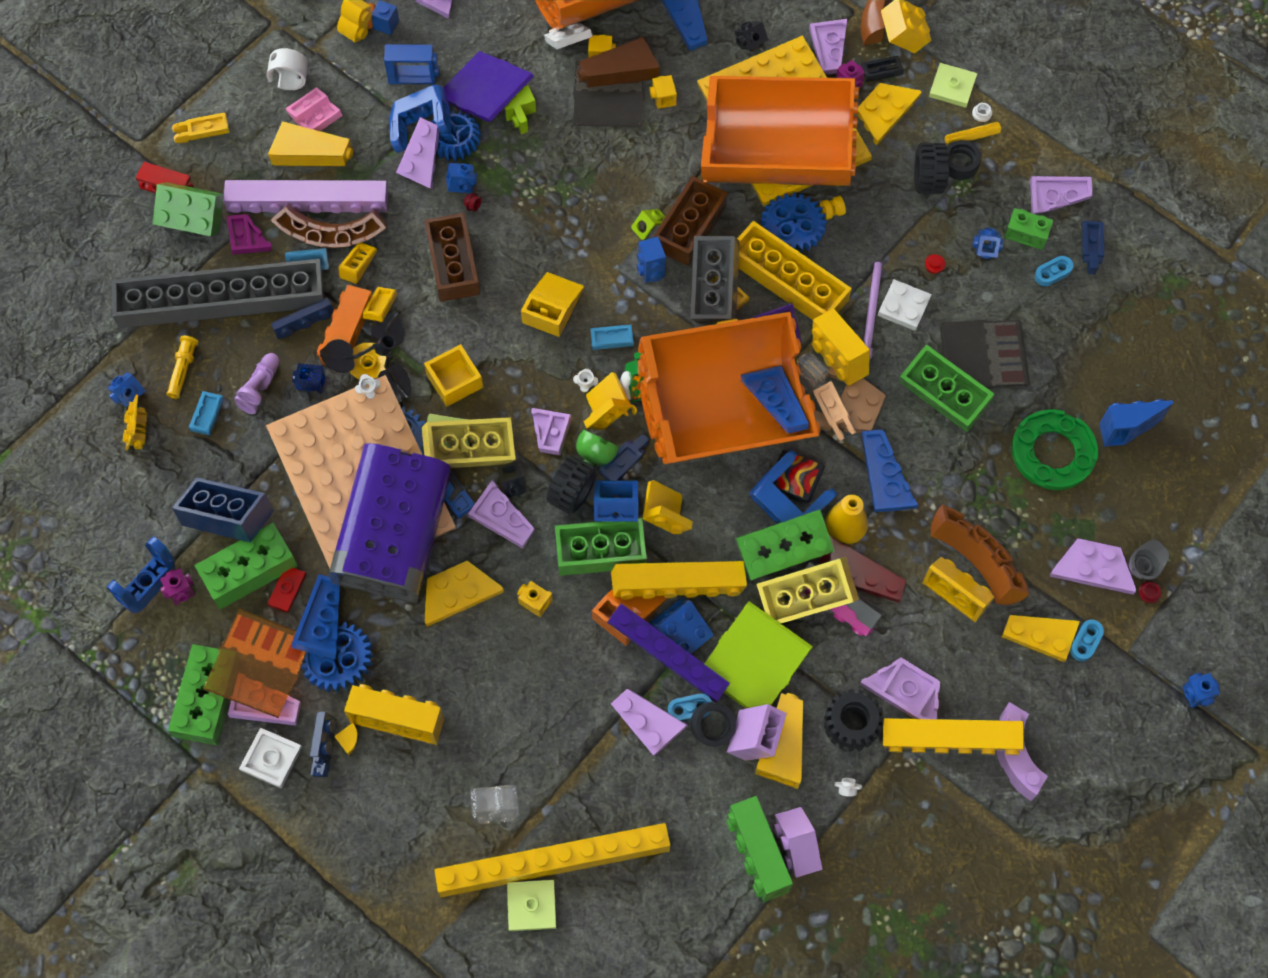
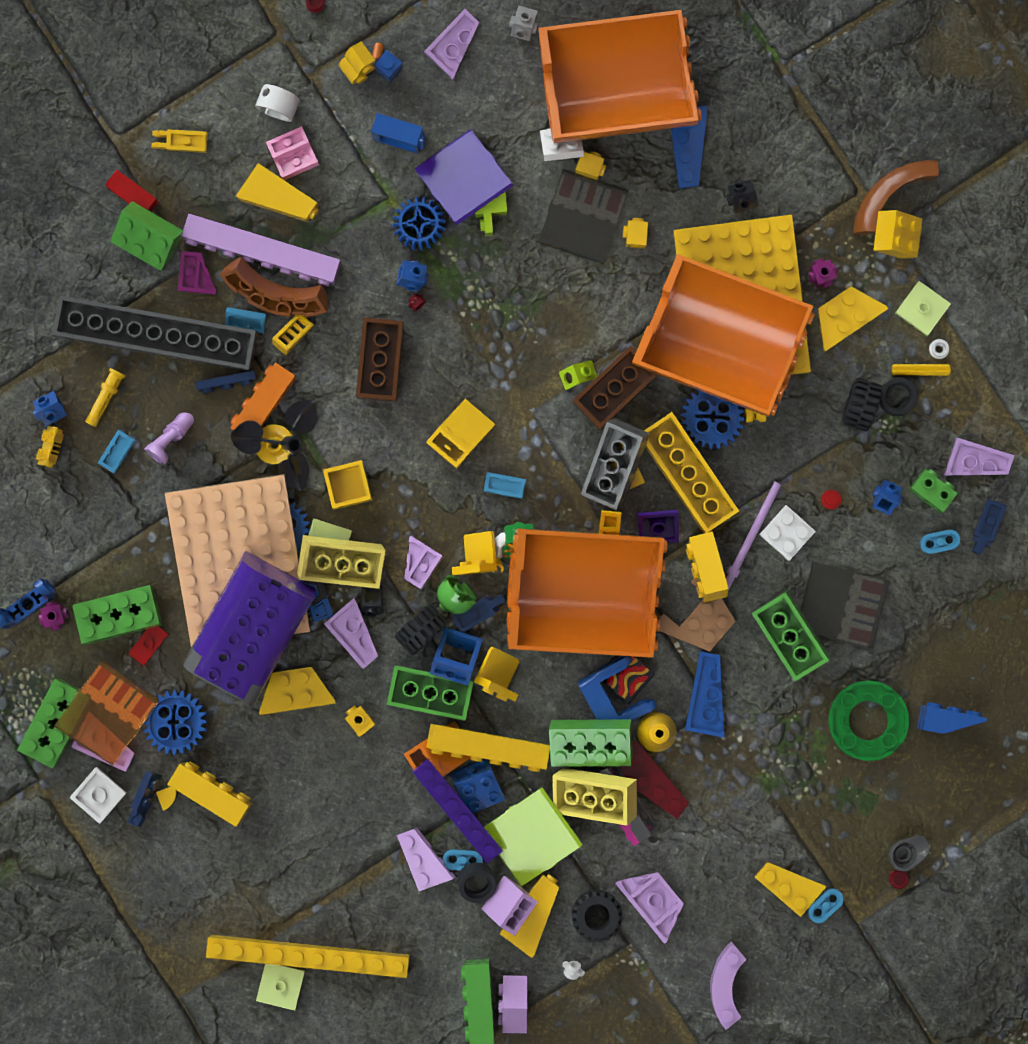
camera: 20 degrees right, 20 degrees up
(223, 509) = (108, 561): dark blue brick -> none
(305, 372) = (225, 445): clear blue brick -> none
(319, 621) = (166, 693): blue wing -> none
(367, 380) = (264, 491): white plate -> none
(379, 304) = (300, 387): yellow tile -> none
(416, 106) = (390, 182): blue connector -> none
(420, 154) = (380, 238): lavender wing -> none
(495, 803) = (274, 892): clear brick -> none
(585, 374) = (470, 515): white plate -> none
(619, 65) = (604, 193): reddish brown slope -> none
(651, 260) = (563, 421): blue brick -> none
(776, 395) = (631, 598): blue wing -> none
(812, 372) = (672, 583): clear brick -> none
(829, 43) = (816, 227): lavender wing -> none
(833, 408) = (681, 624): light nougat hinge -> none
(883, 70) = (877, 269): black tile -> none
(953, 735) = (675, 959): yellow brick -> none
(958, 588) = (732, 826): yellow slope -> none
(982, 552) = (767, 799): dark orange brick -> none
(1095, 566) = (861, 839): lavender wing -> none
(1201, 690) = (898, 978): blue brick -> none

